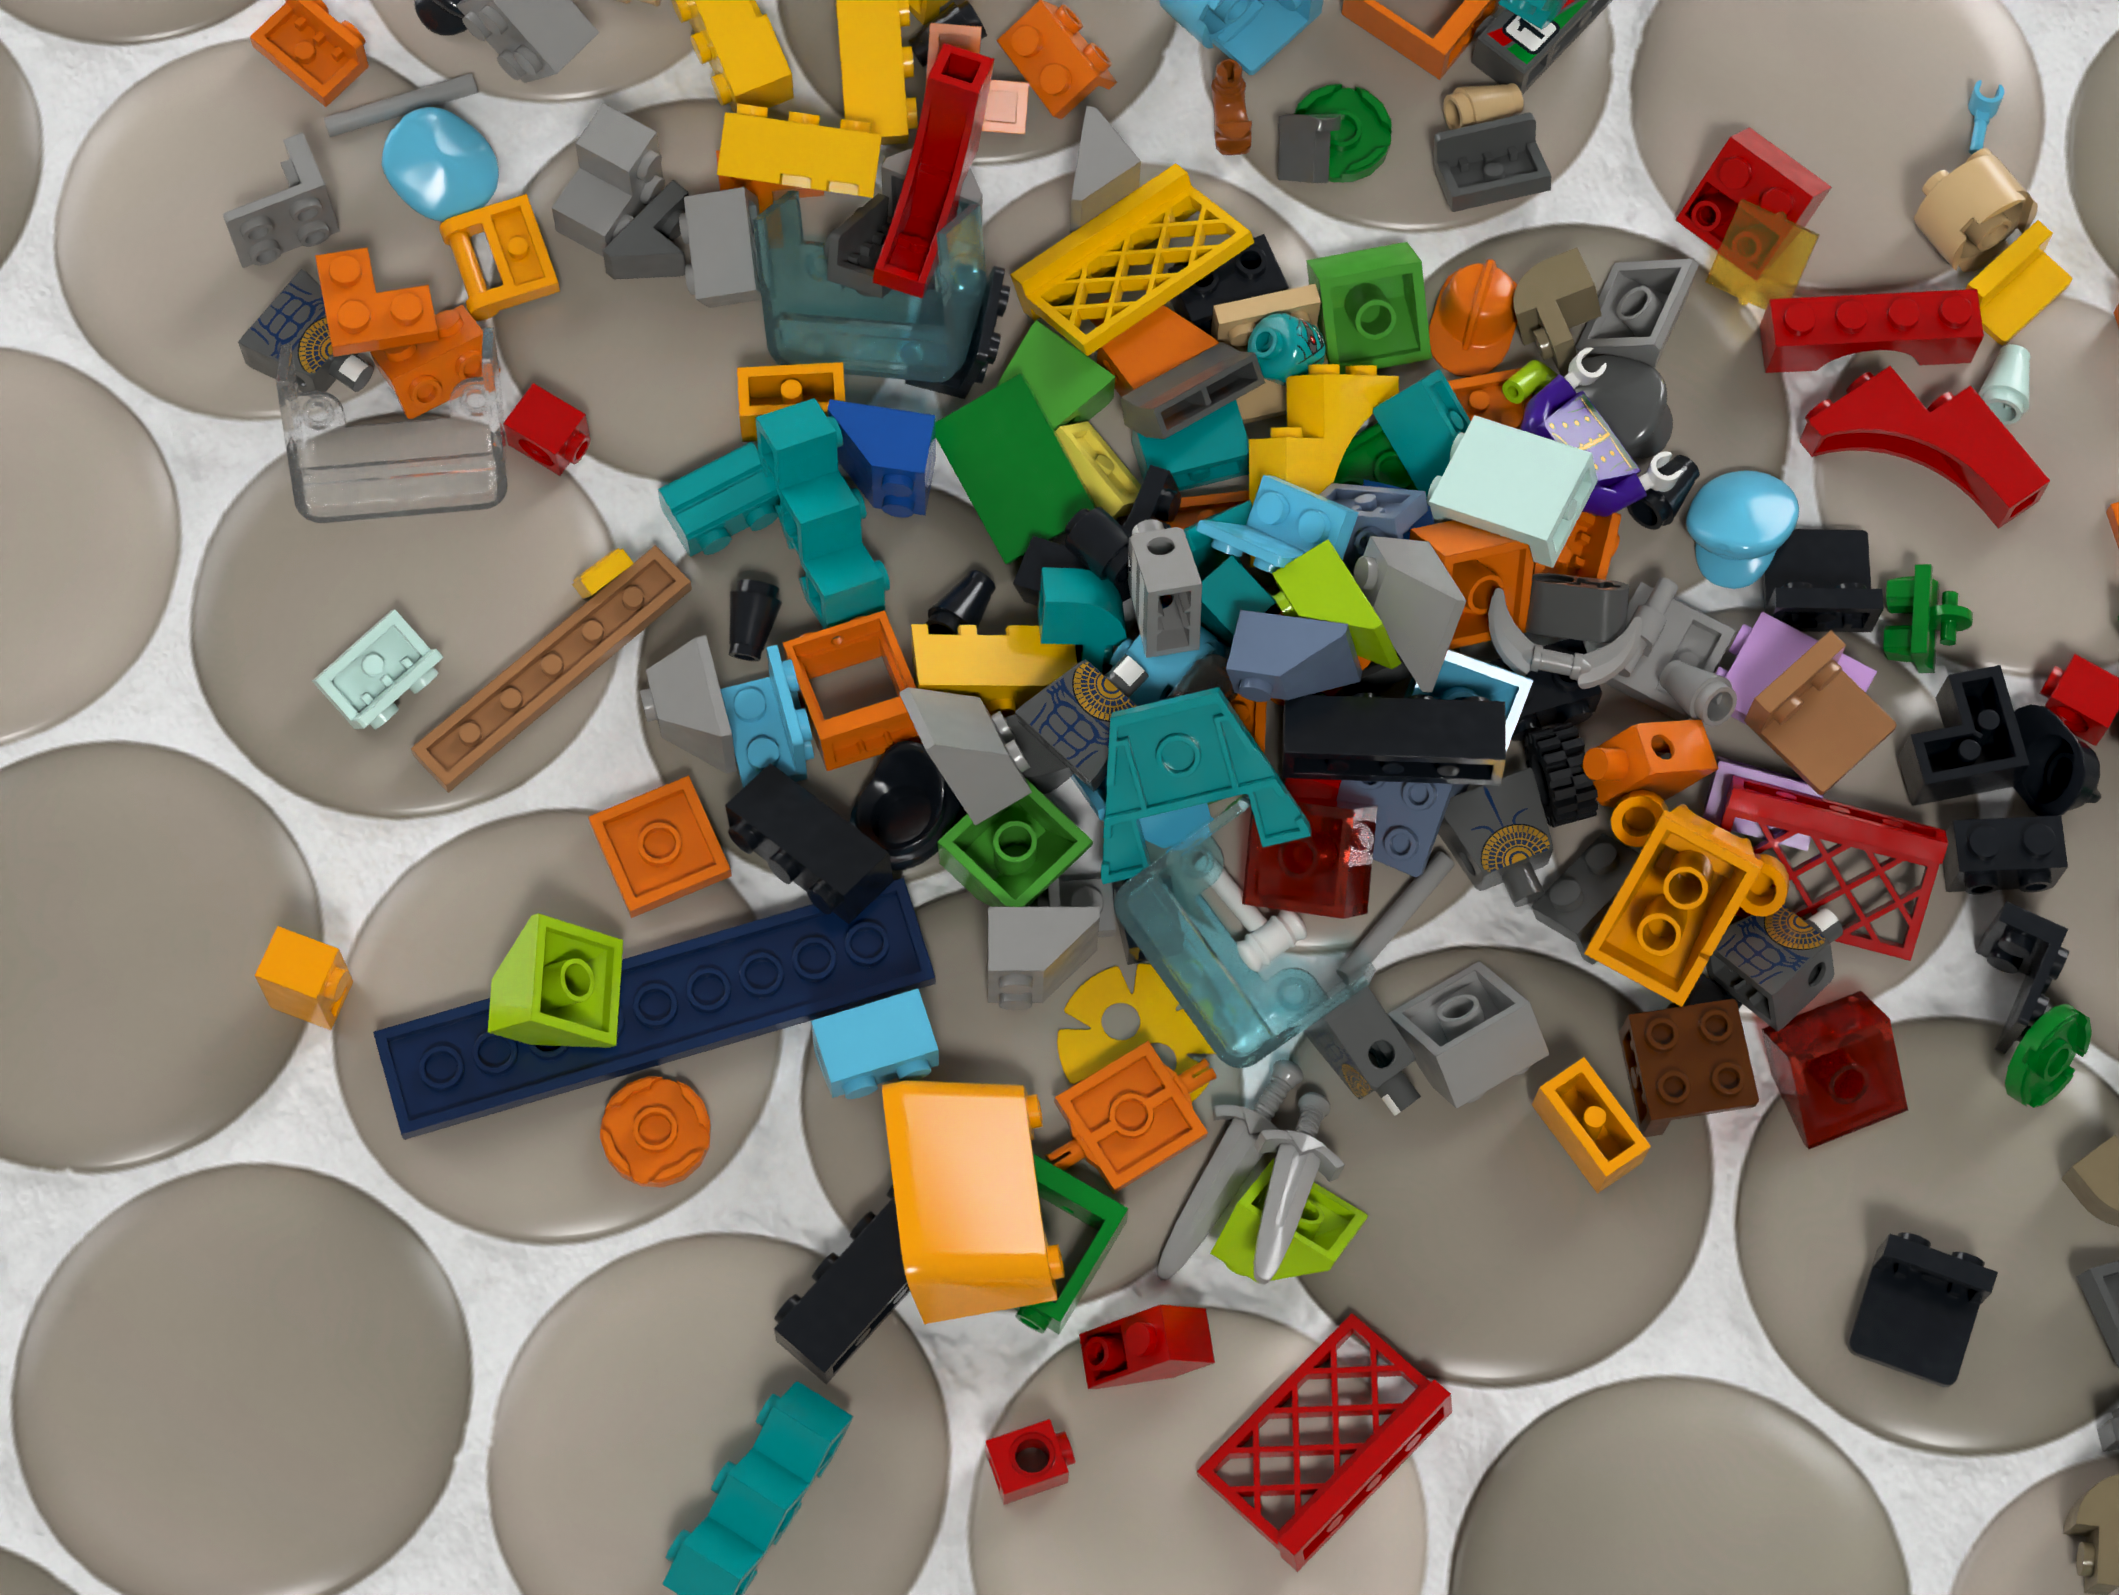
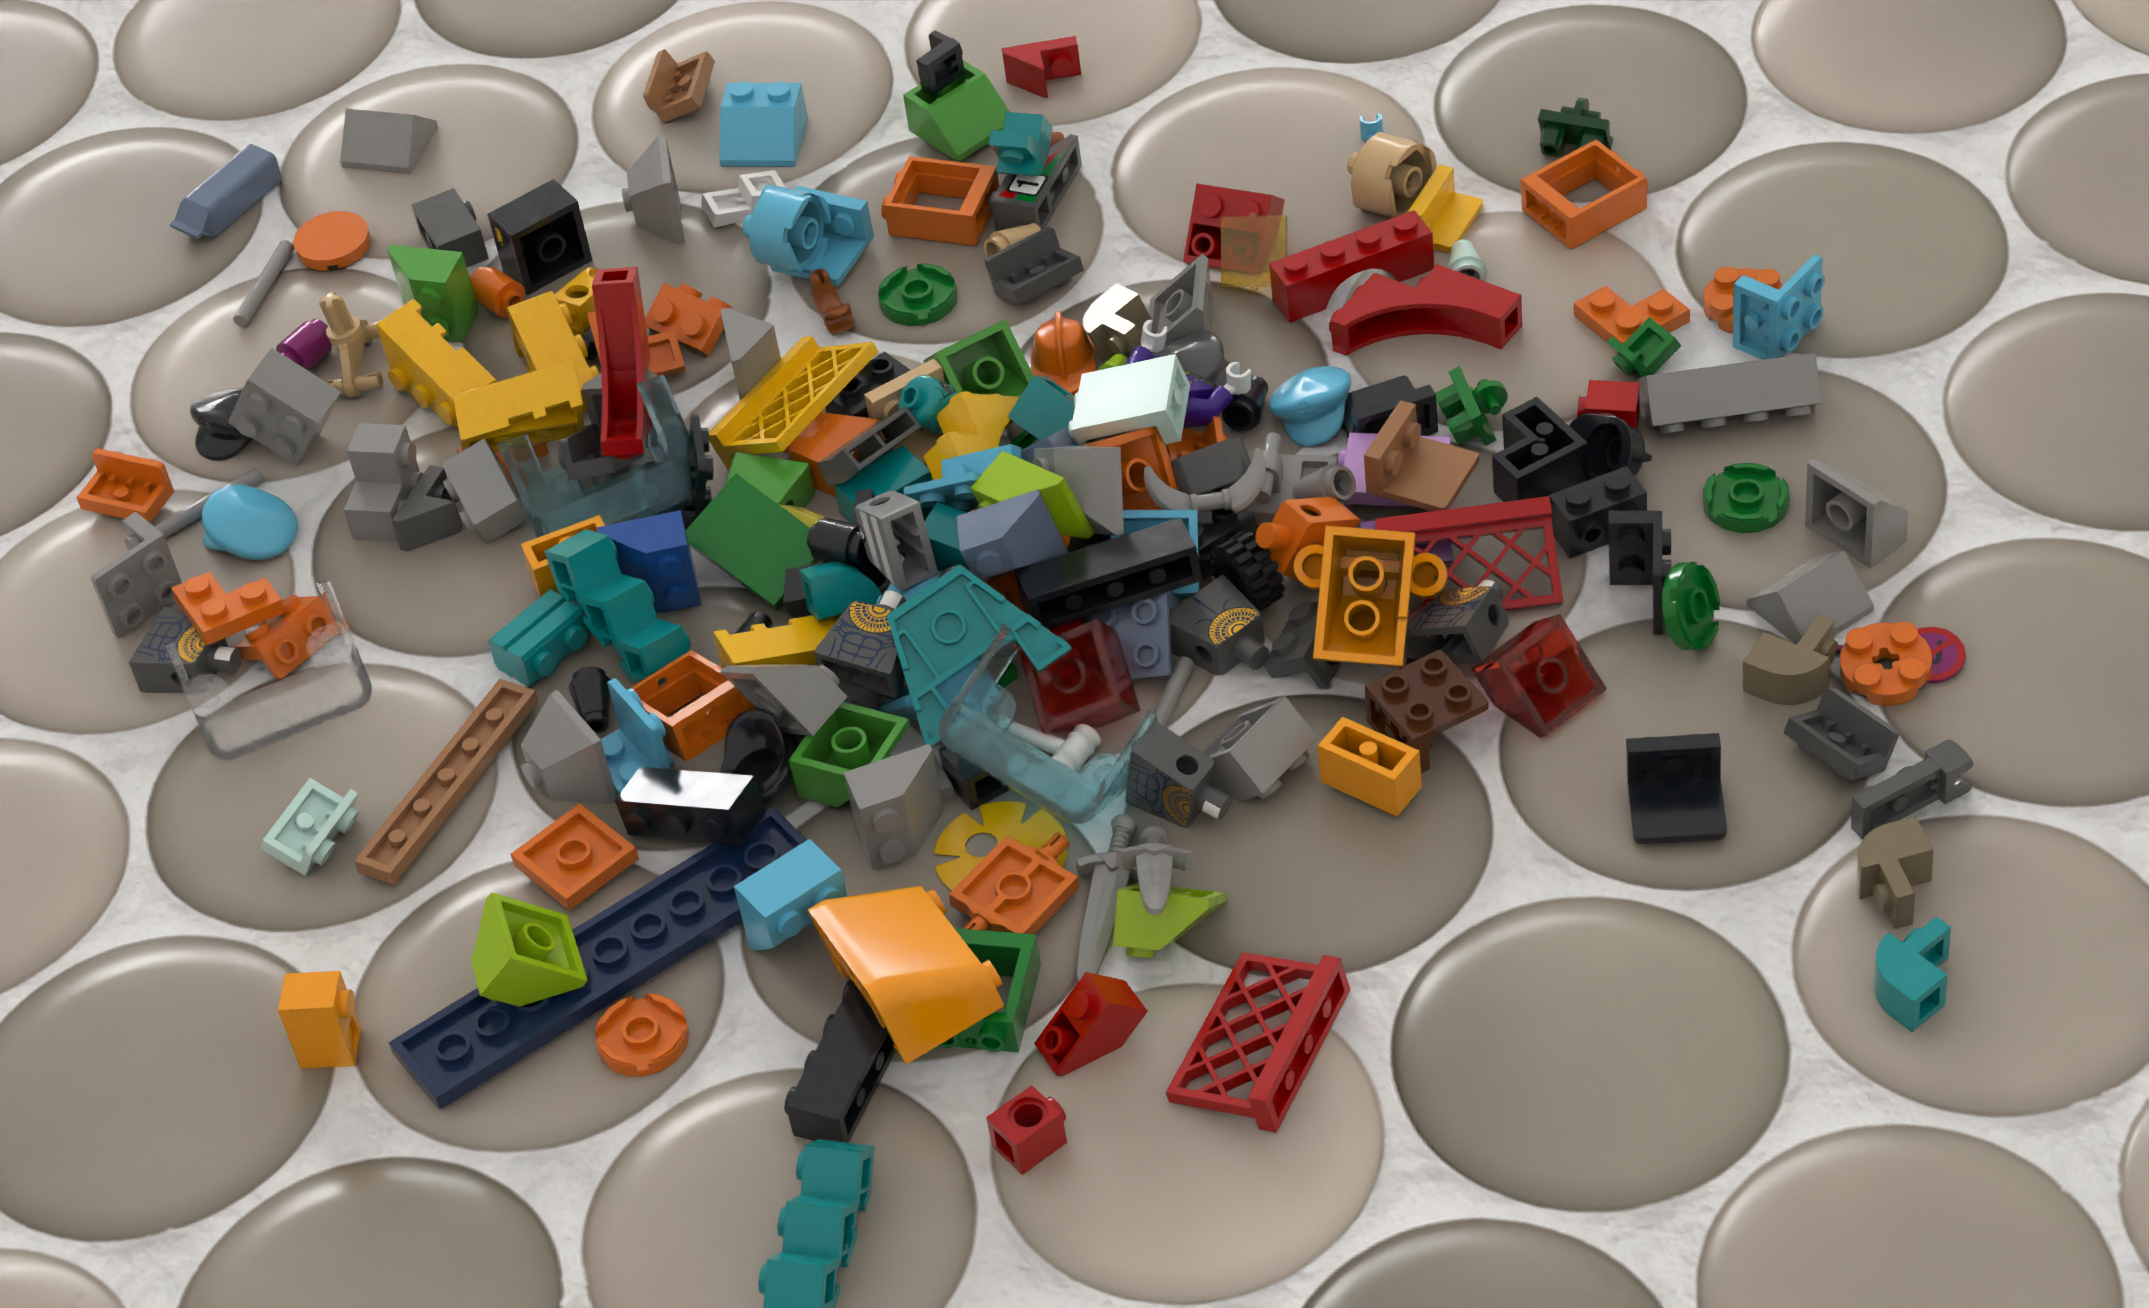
camera: 10 degrees left, 25 degrees down
(516, 250) = (323, 550): light orange plate -> none
(547, 430) = (390, 642): red brick -> none
(602, 572) = (463, 707): yellow tile -> none
(1306, 146) = (894, 300): dark grey tile -> none

